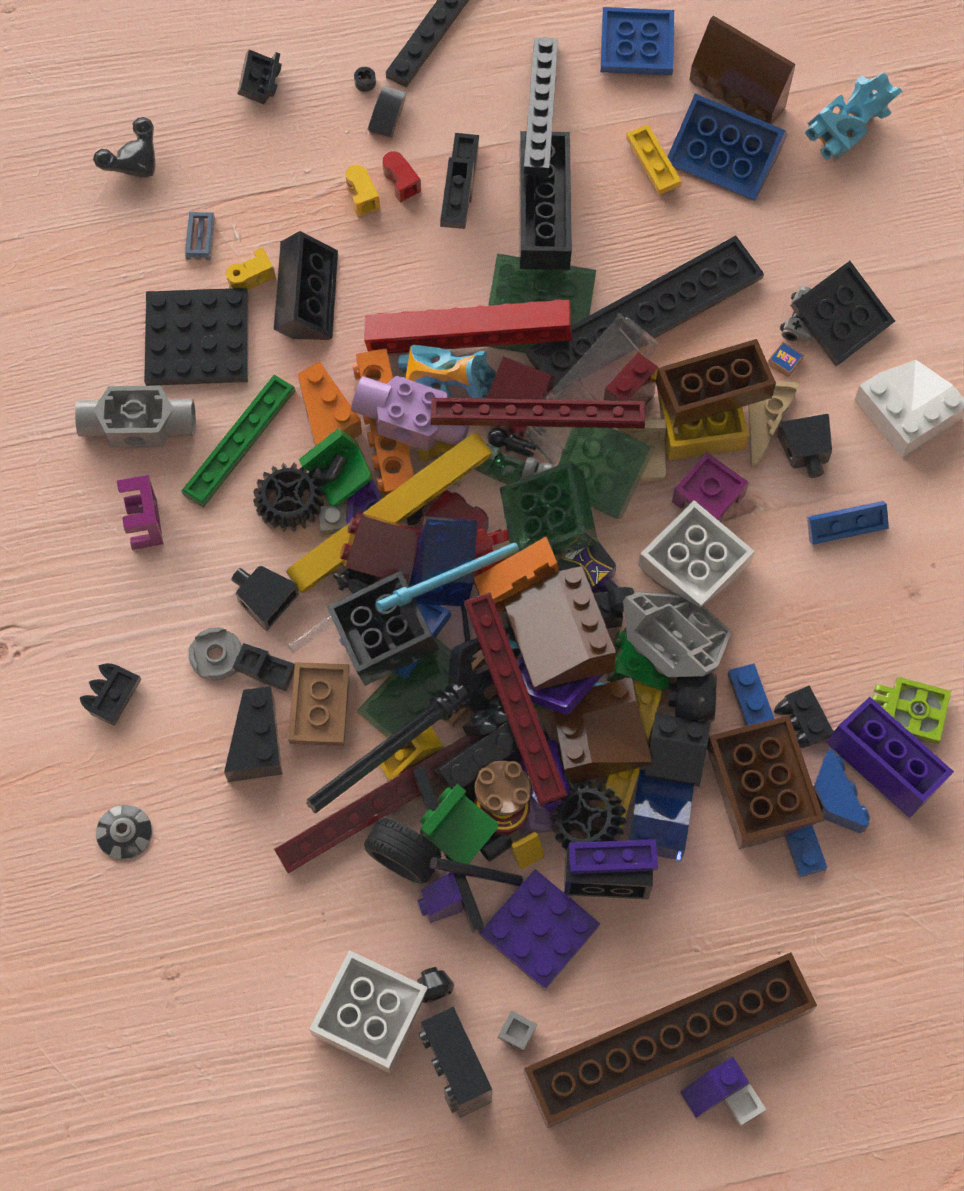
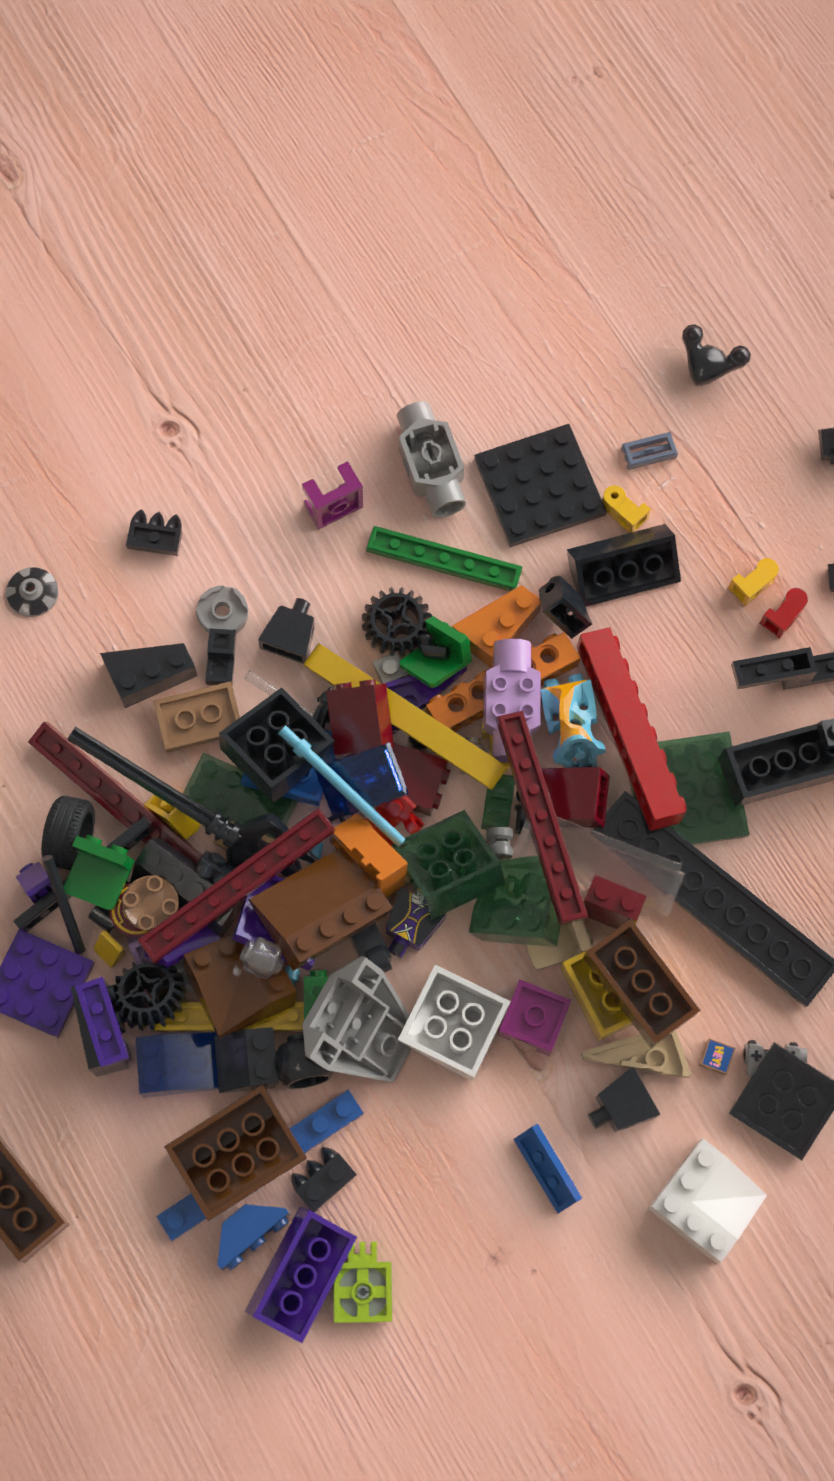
camera: 70 degrees right, 5 degrees up
(323, 346) = (560, 598): none -> black torso
(595, 692) = (261, 958): none -> clear head

